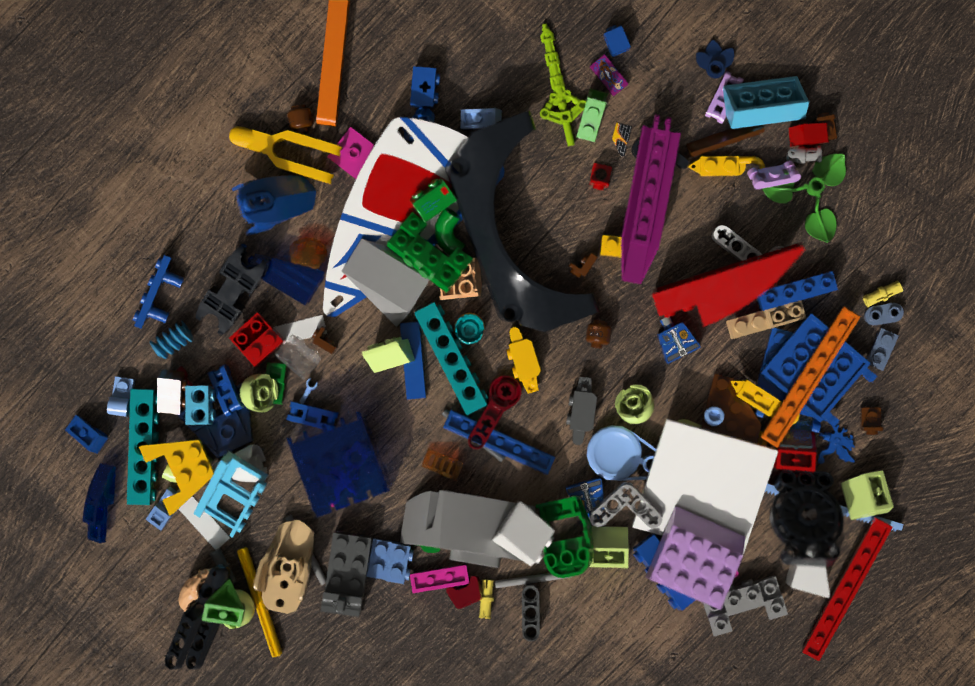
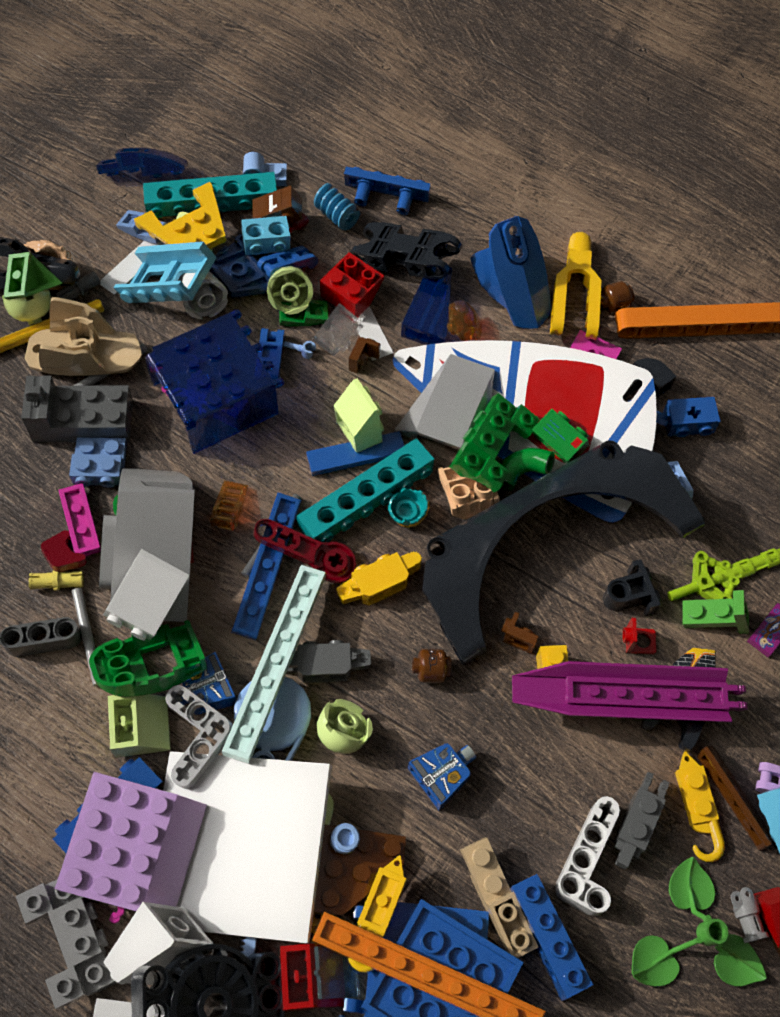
camera: 85 degrees right, 25 degrees down
(86, 435) = (215, 145): blue plate -> none
(381, 109) = (662, 376): none -> black brick
(563, 171) = (635, 590): none -> black pin
(582, 446) = (273, 665): none -> light aqua plate
(726, 288) = (535, 825): red slope -> none
(732, 212) = (639, 821): none -> dark grey hinge
(762, 547) = (153, 938): none -> white slope
(774, 175) = (707, 873): lavender plate -> none

